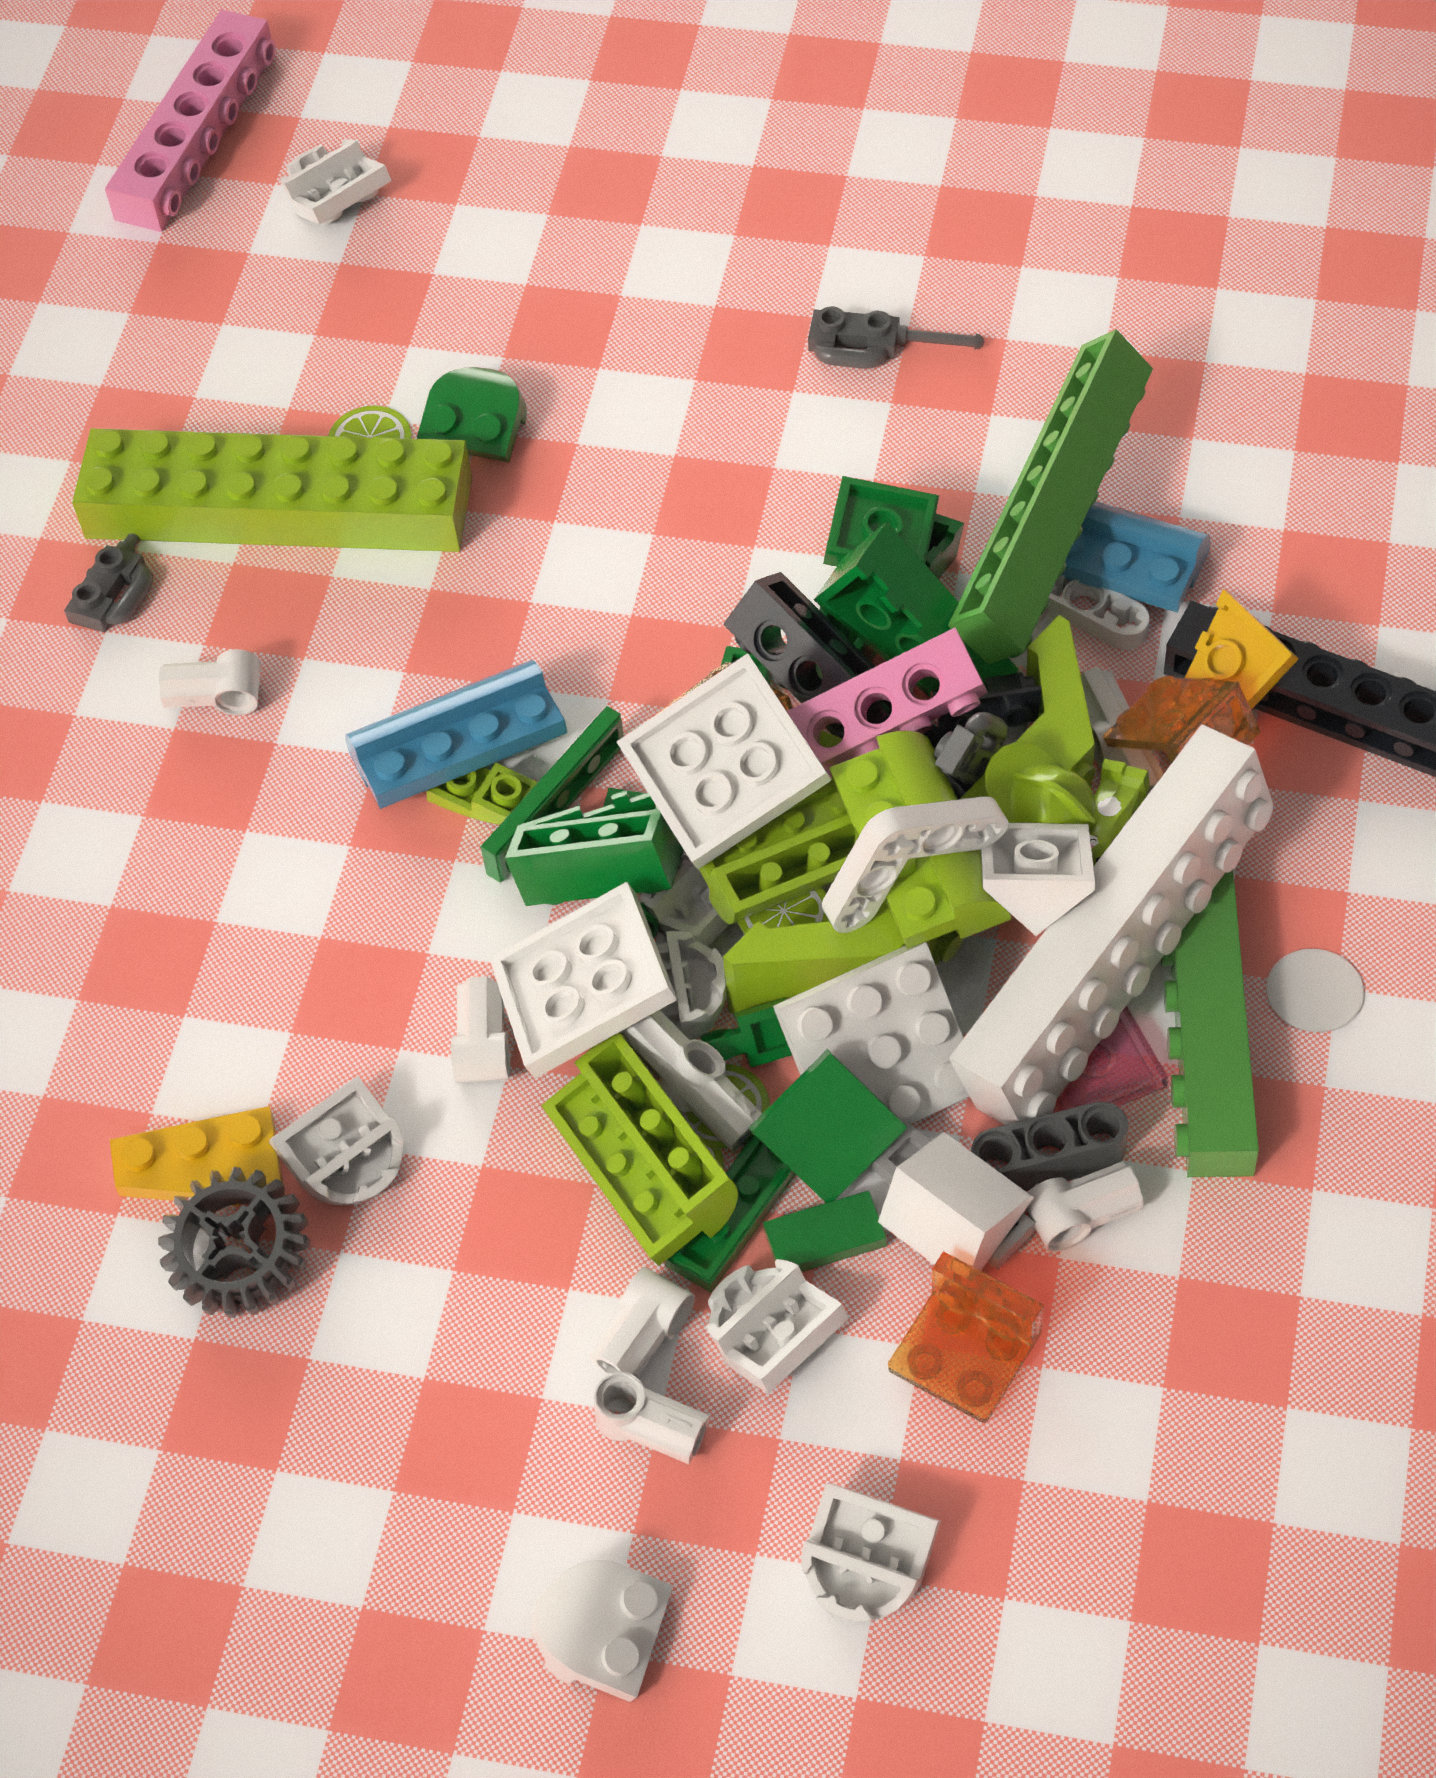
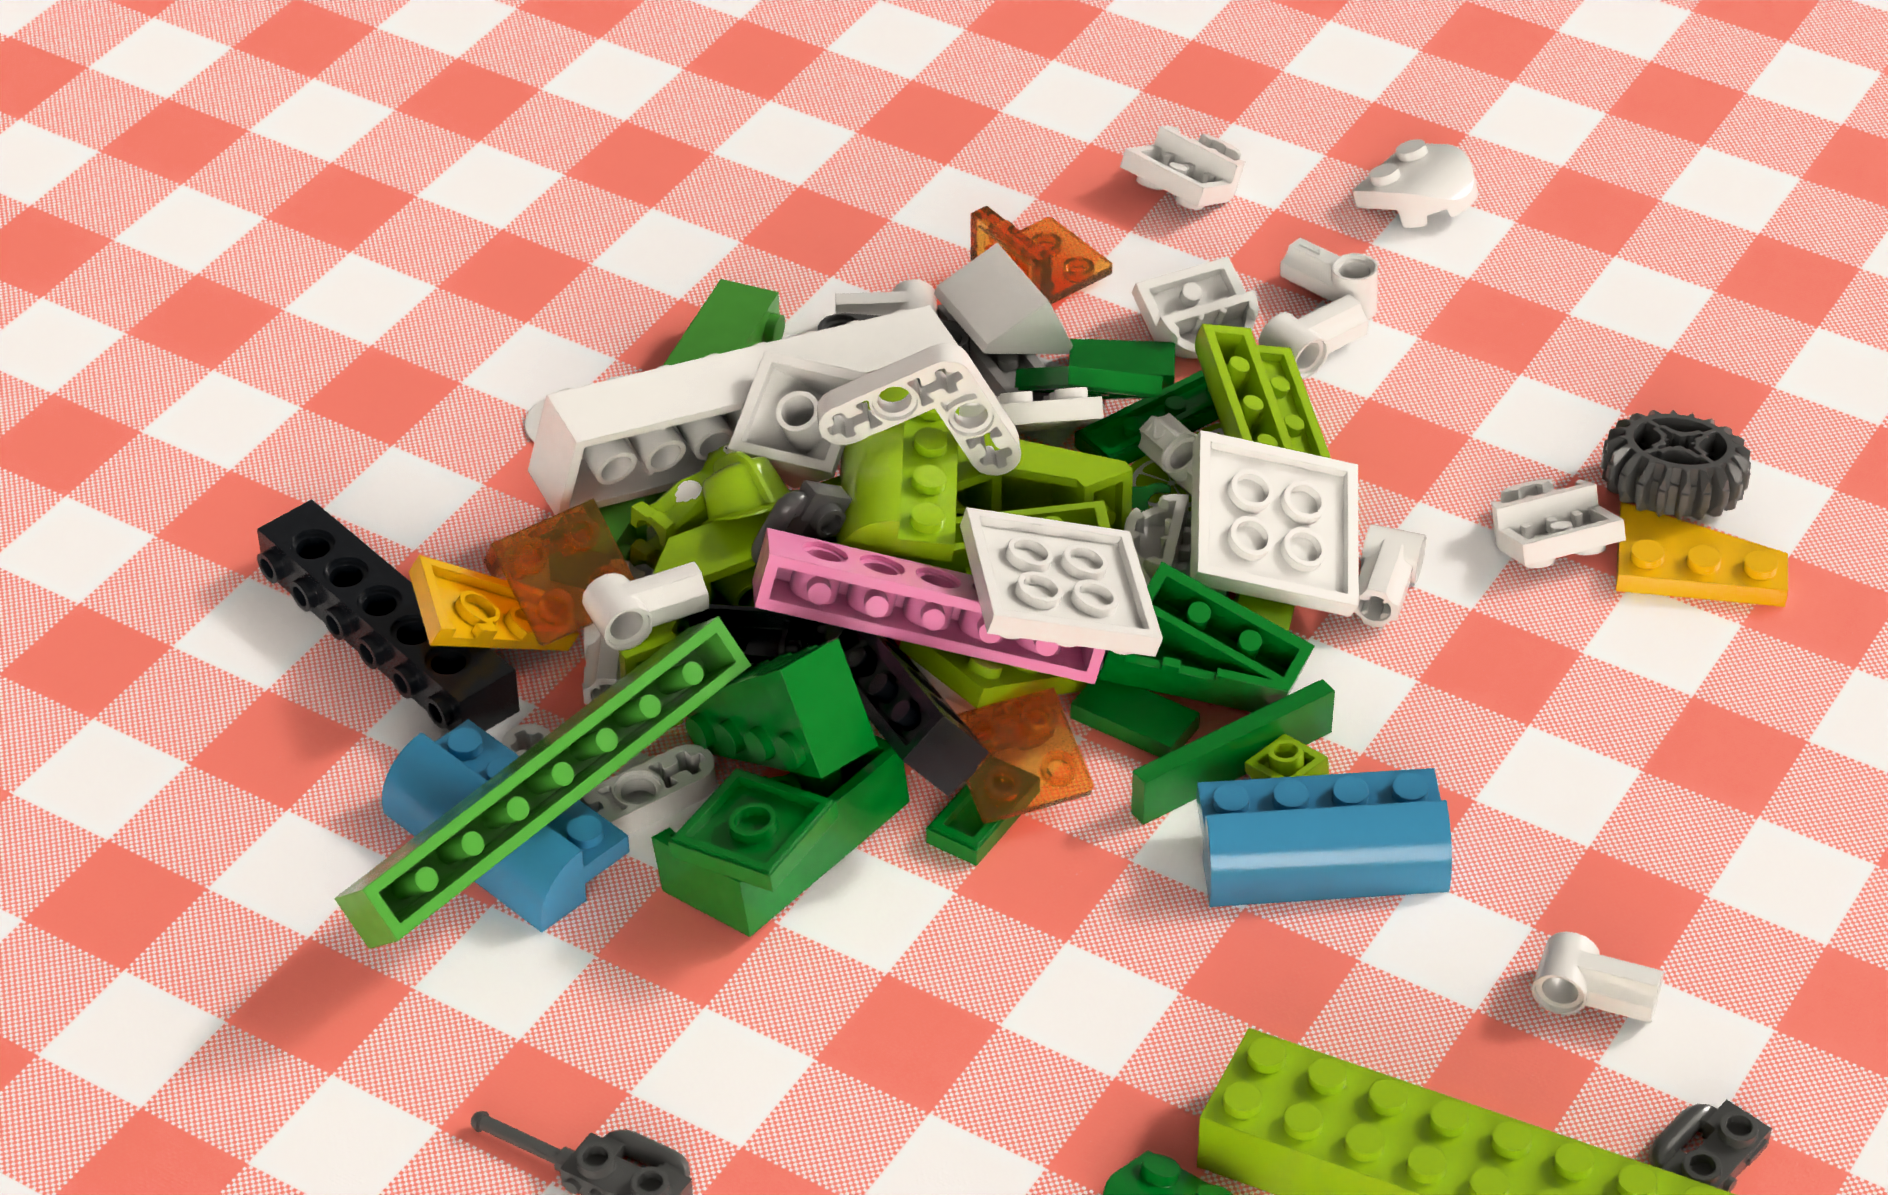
camera: 165 degrees left, 15 degrees down
(1070, 631) = (630, 609): none -> white piece

